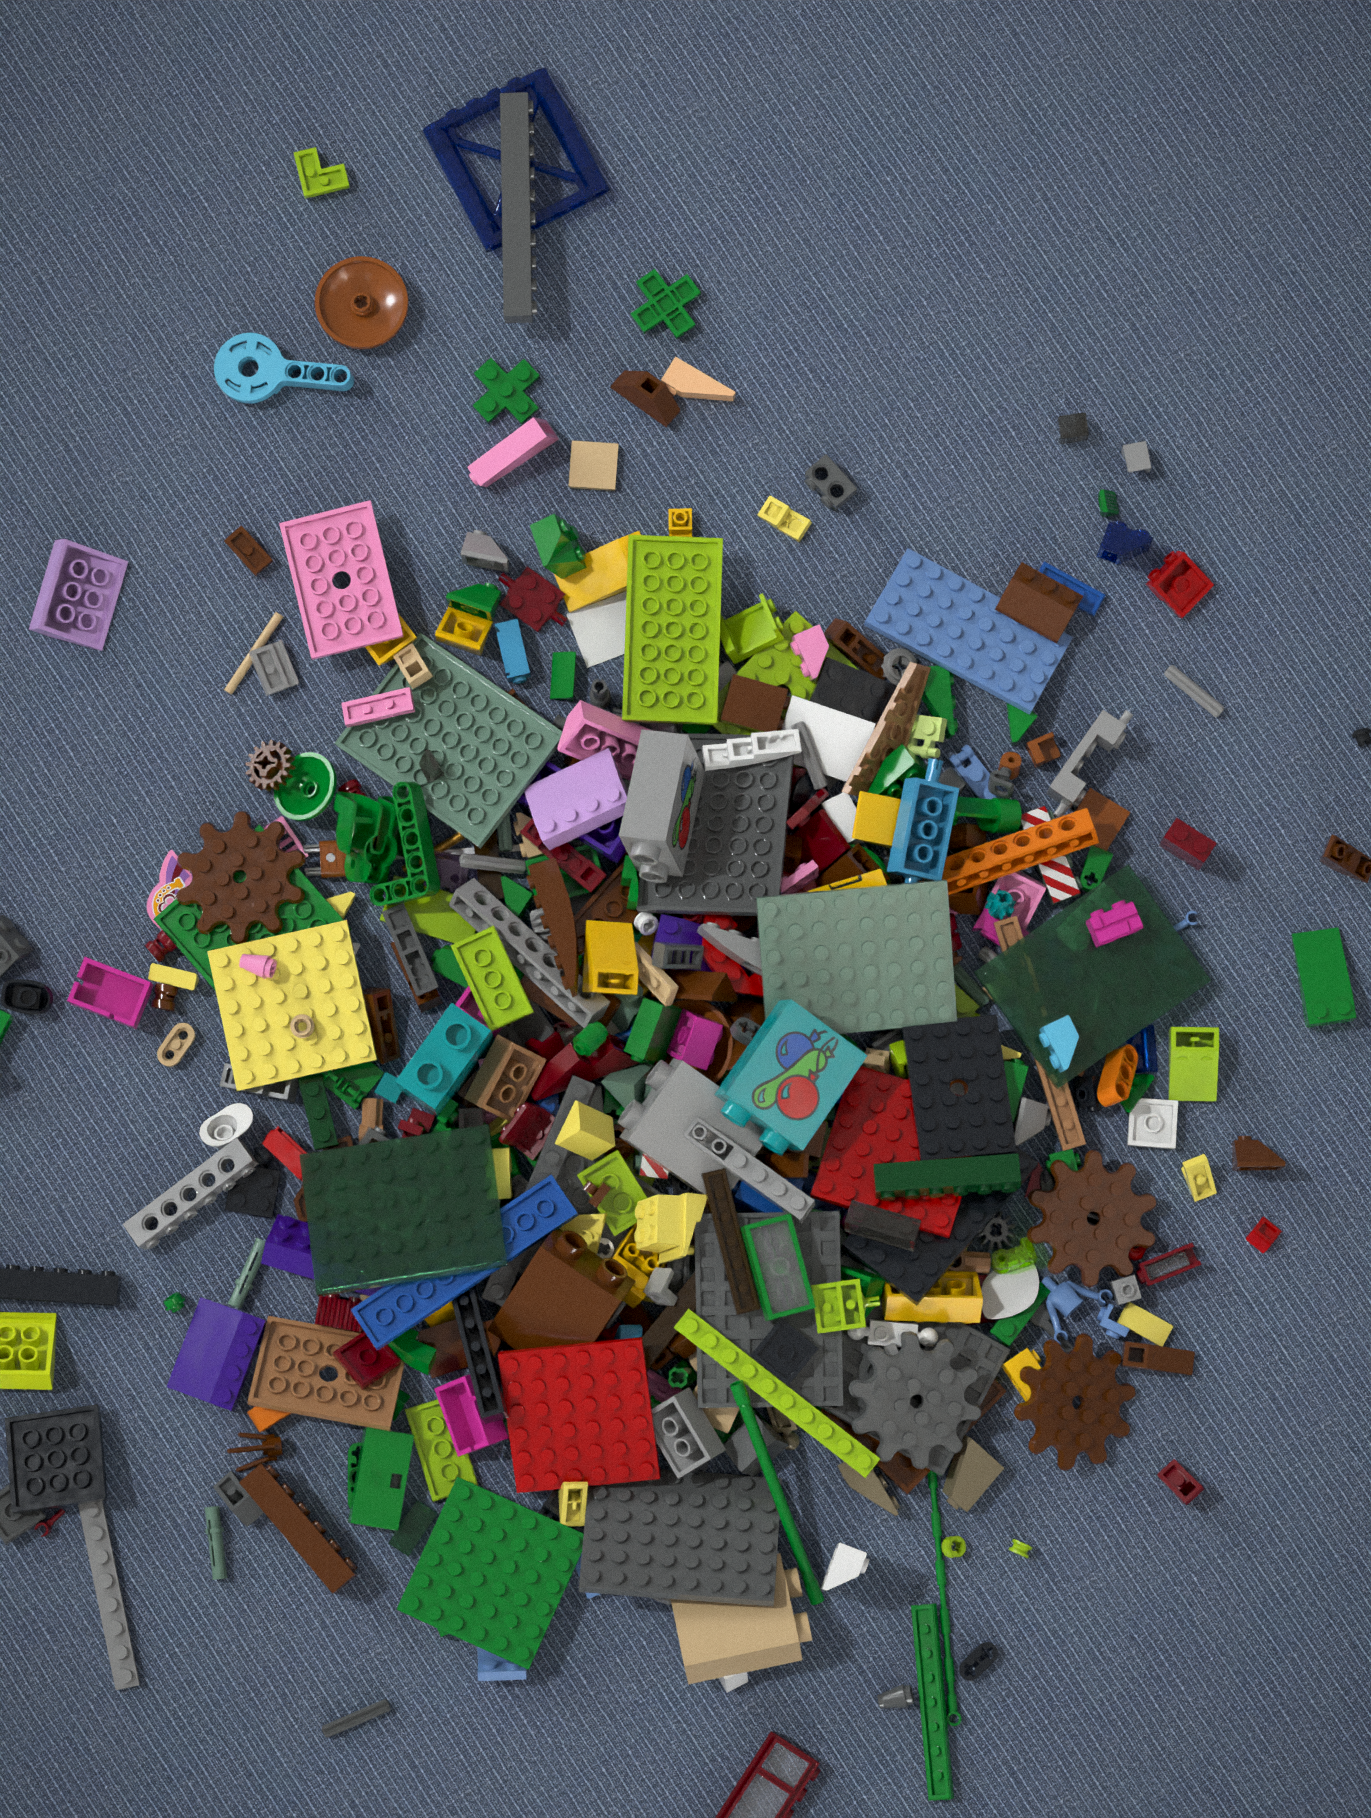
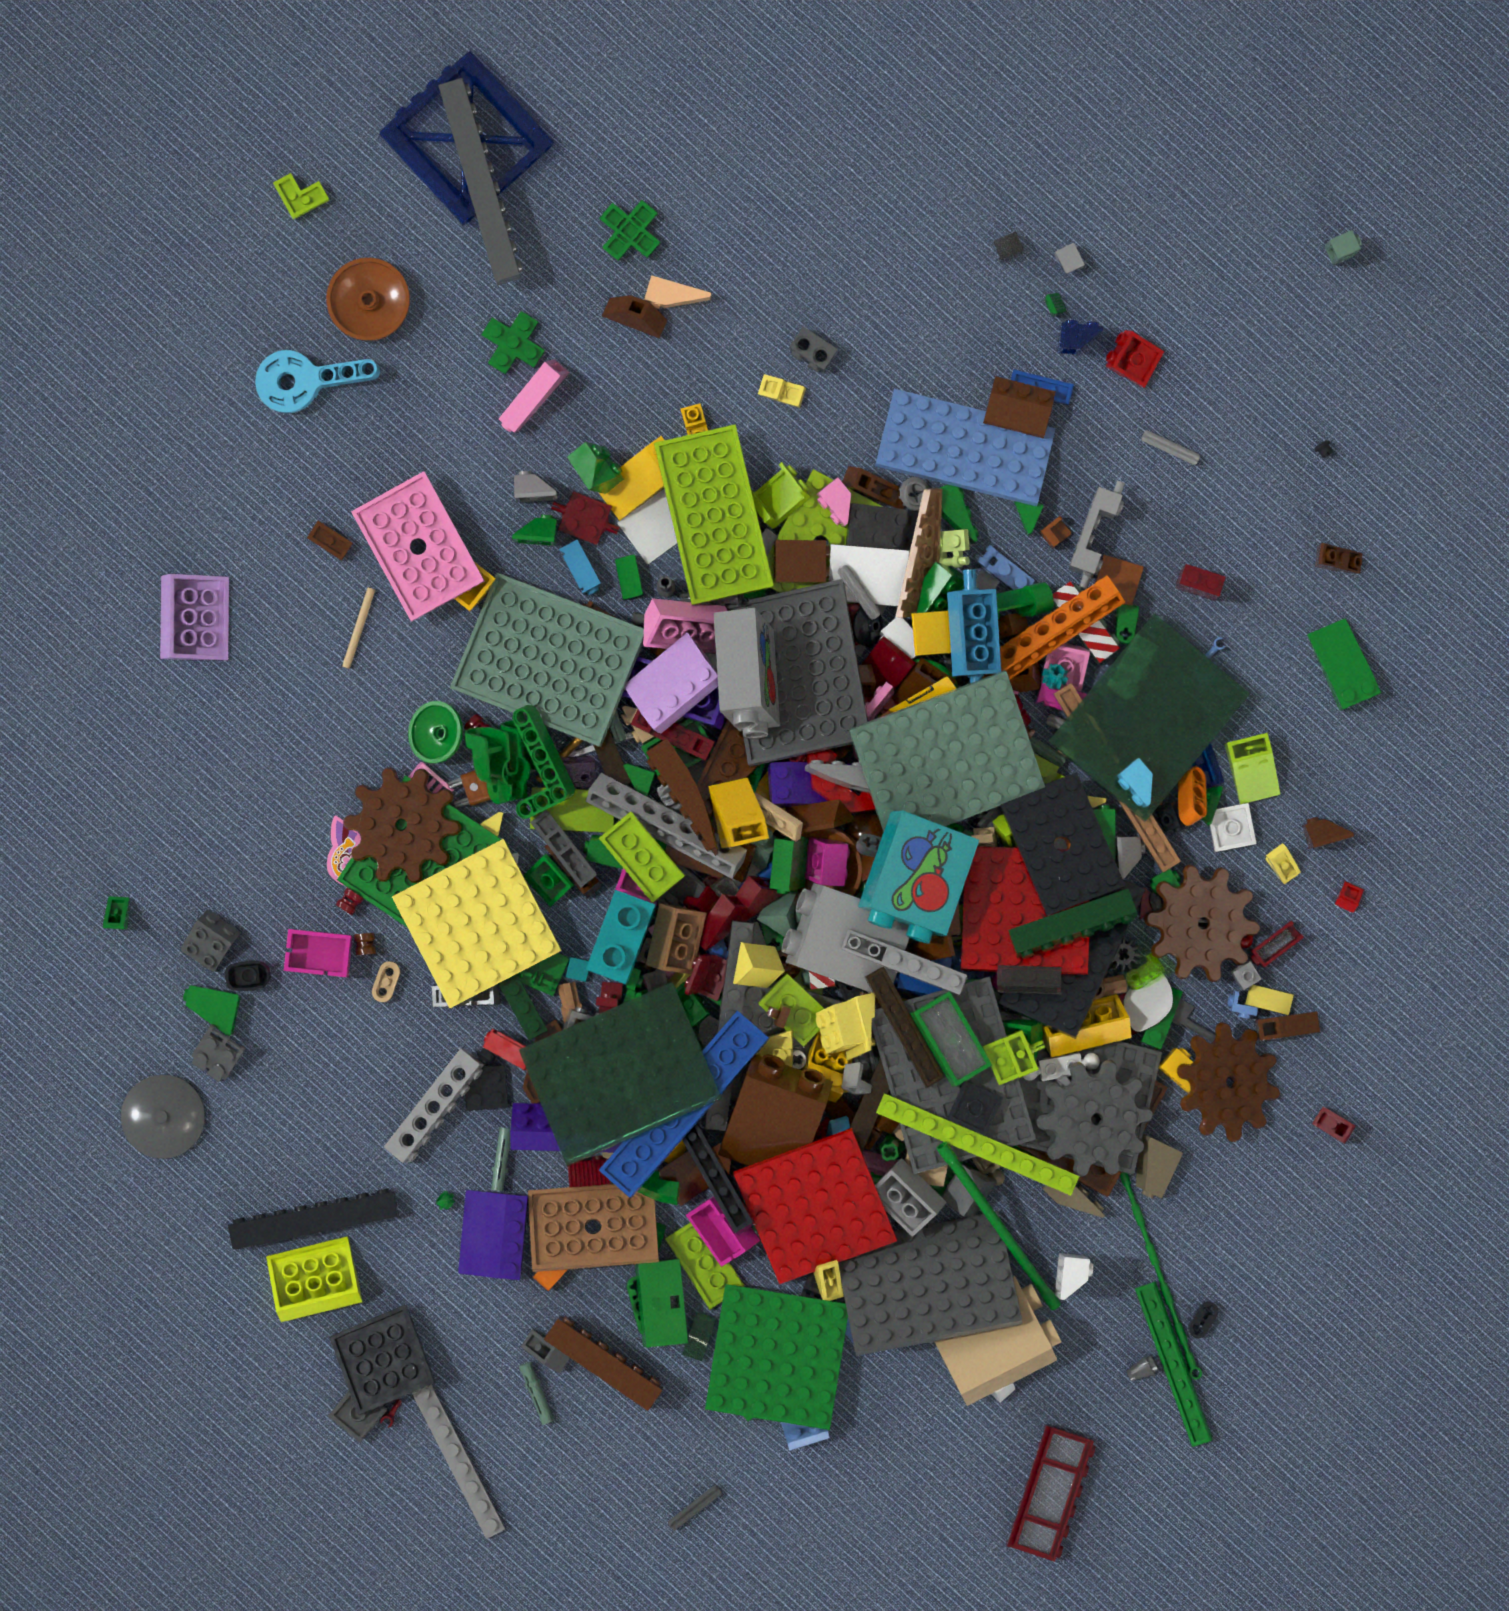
camera: 20 degrees left, 5 degrees up
(173, 976) = (367, 925): light yellow slope -> none
(226, 1125) = (448, 1039): white piece -> none
(259, 965) = (440, 897): bright pink cone -> none
(270, 765) = (396, 714): reddish brown gear -> none
(270, 1447) = (560, 1300): reddish brown plant -> none
(273, 668) = (379, 636): light grey plate -> none
(295, 1023) = (486, 934): tan plate -> none
(364, 1361) = (619, 1208): dark red tile -> none
(378, 707) = (479, 647): bright pink plate -> none
(382, 1023) = (556, 917): reddish brown slope -> none
(384, 973) = (548, 880): none -> green slope
(413, 666) = (499, 604): tan brick -> none
(430, 766) = (538, 688): clear smoke slope -> none
(463, 631) = (533, 560): yellow slope -> none
(492, 863) = (613, 756): light grey axle -> none
(503, 1169) = (695, 1017): light yellow slope -> none
(590, 1038) = (739, 886): green brick -> none
(593, 465) = (605, 388): tan tile -> none
(630, 879) = (735, 739): green slope -> none
(646, 923) = (759, 773): white bush -> none
(663, 955) = (781, 795): dark grey slope -> none
(751, 750) = (809, 601): white slope -> none
(803, 814) = (867, 644): dark red wing -> none
(960, 1546) = (1151, 1229): lime bush -> none
(1008, 769) = (1030, 558): leg -> none
(1020, 1548) = (1213, 1216): lime bush -> none
(1066, 1300) = (1198, 997): medium blue piece -> none
(1114, 923) = (1157, 668): dark pink brick -> none

